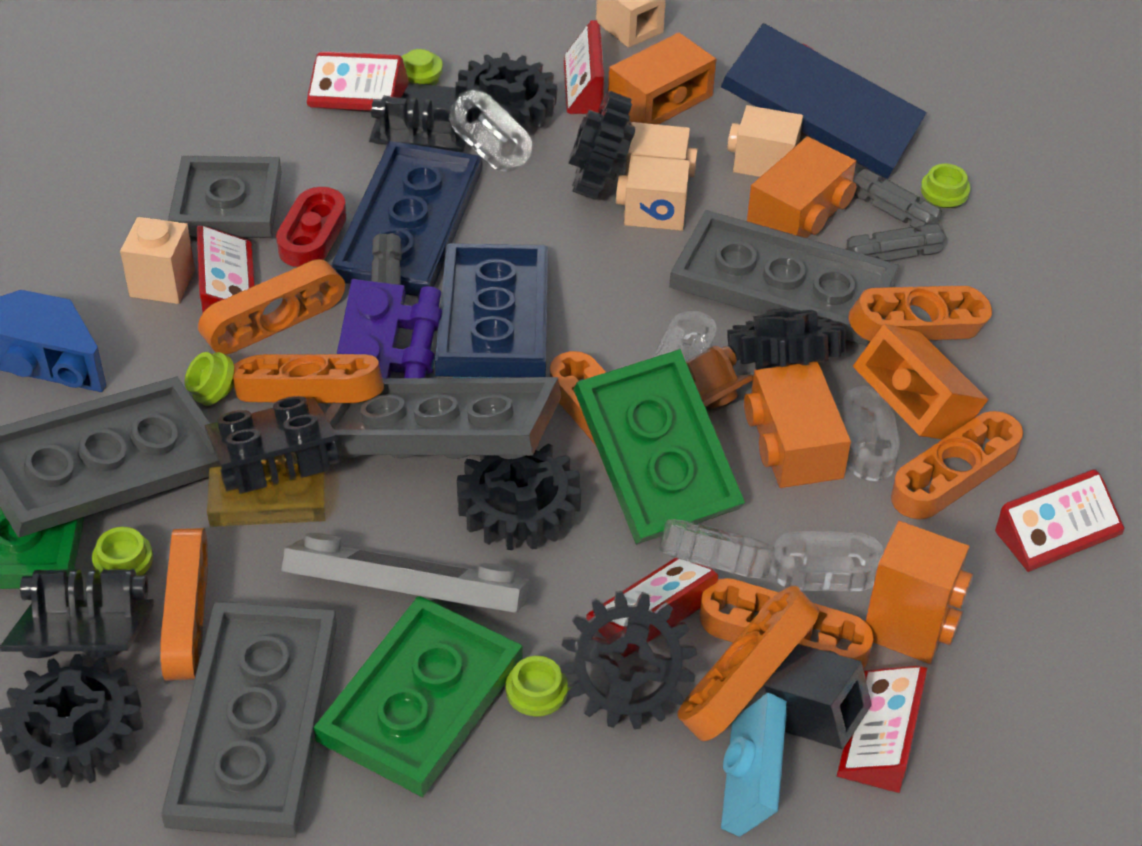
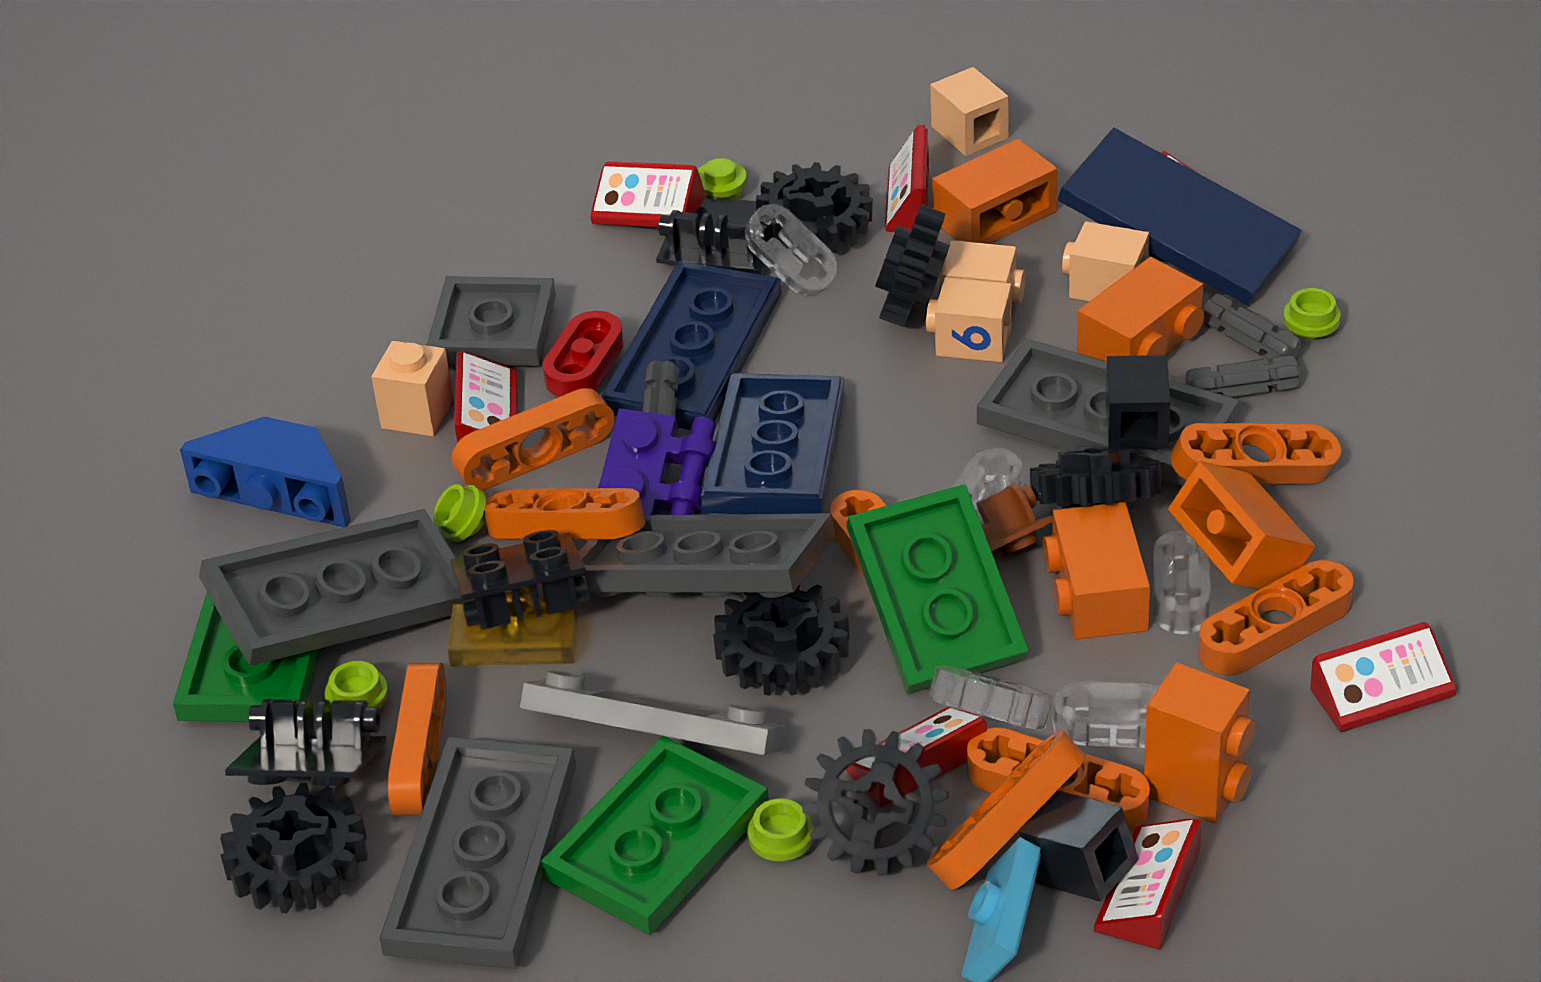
camera: 10 degrees right, 5 degrees down
(818, 268) = (1137, 401): none -> black brick

